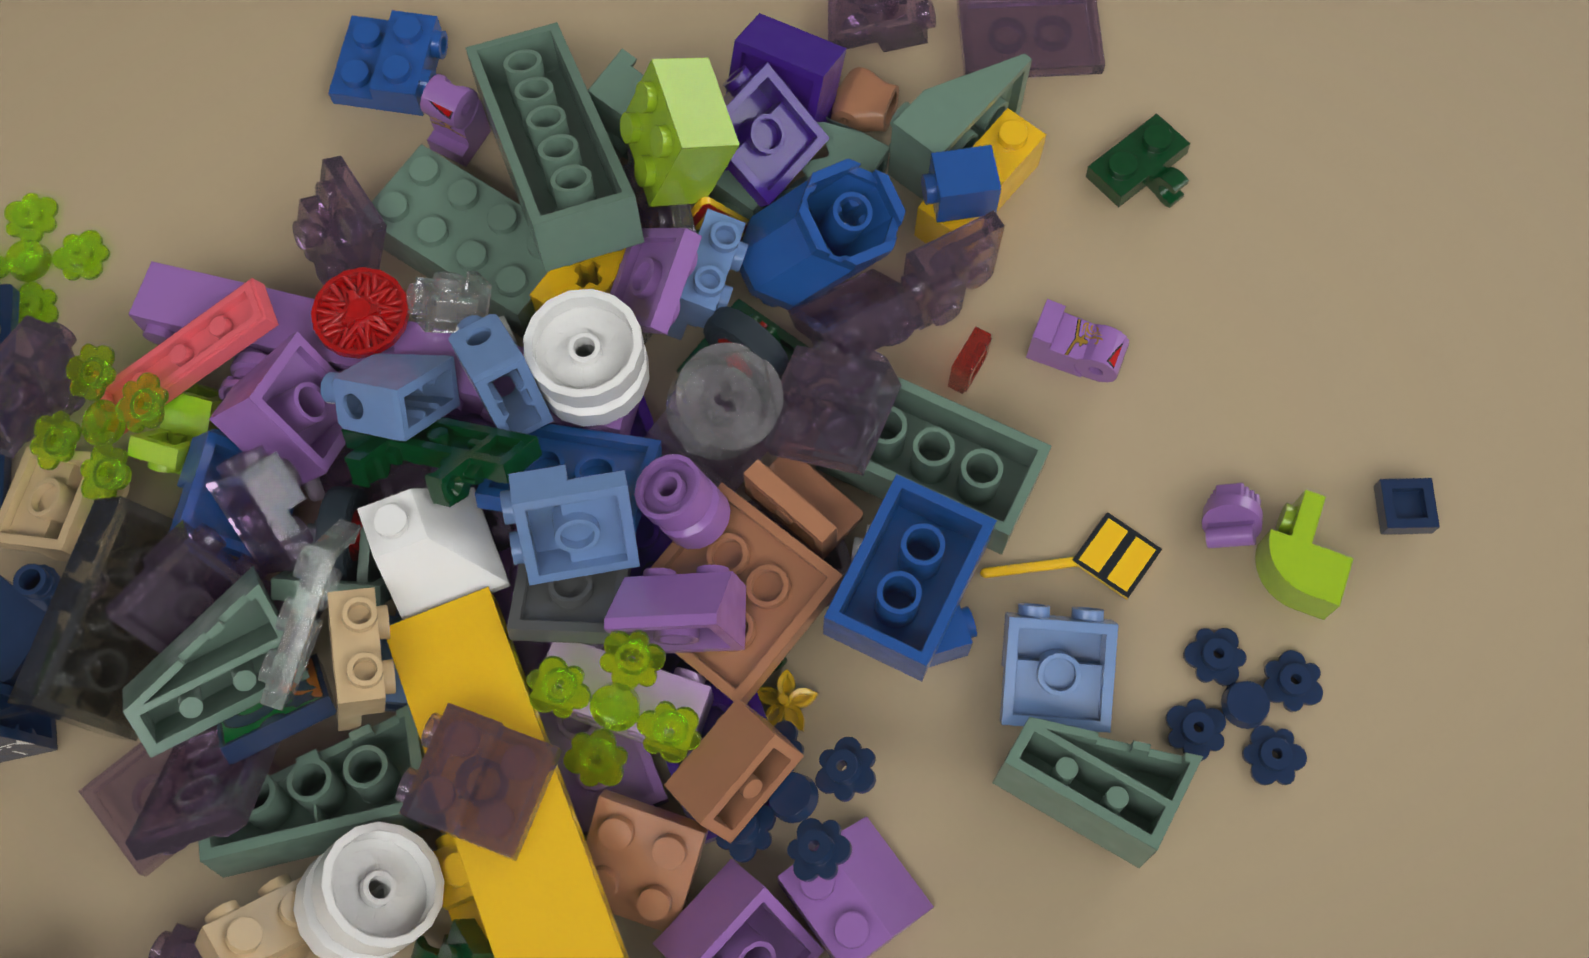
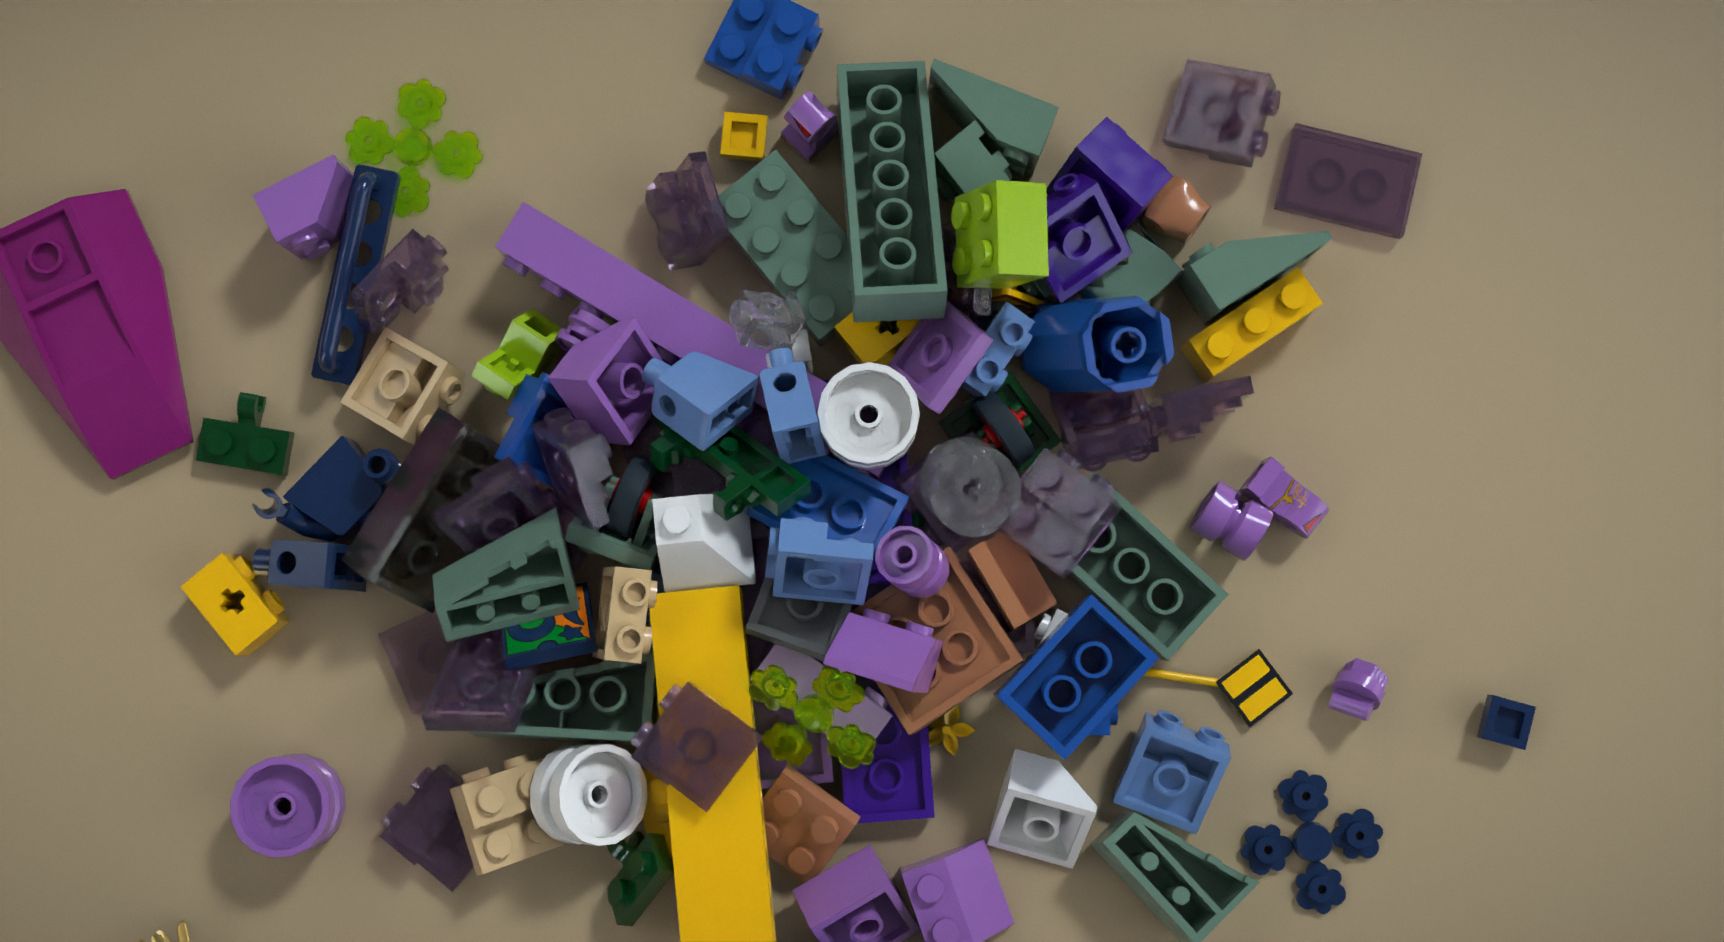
camera: 15 degrees right, 15 degrees up
(101, 424) = (454, 340): clear neon green plant -> none
(203, 342) = (537, 303): coral tile -> none
(285, 667) = (592, 575): clear wing -> none
(360, 312) = (689, 308): red wheel -> none
(386, 151) = (744, 136): none -> yellow plate
(601, 32) = (1010, 119): none -> sand green slope
(733, 771) = (892, 786): nougat brick -> none
(797, 800) = (933, 819): dark blue plant -> none
(925, 760) = (1041, 811): none -> white slope
(962, 183) = (1231, 341): blue brick -> none
(970, 360) = (1189, 486): clear red tile -> none
(1028, 380) = (1231, 520): none -> medium lavender wheel
(1143, 161) = (1402, 340): dark green plate -> none
(1295, 568) = (1392, 745): lime brick -> none

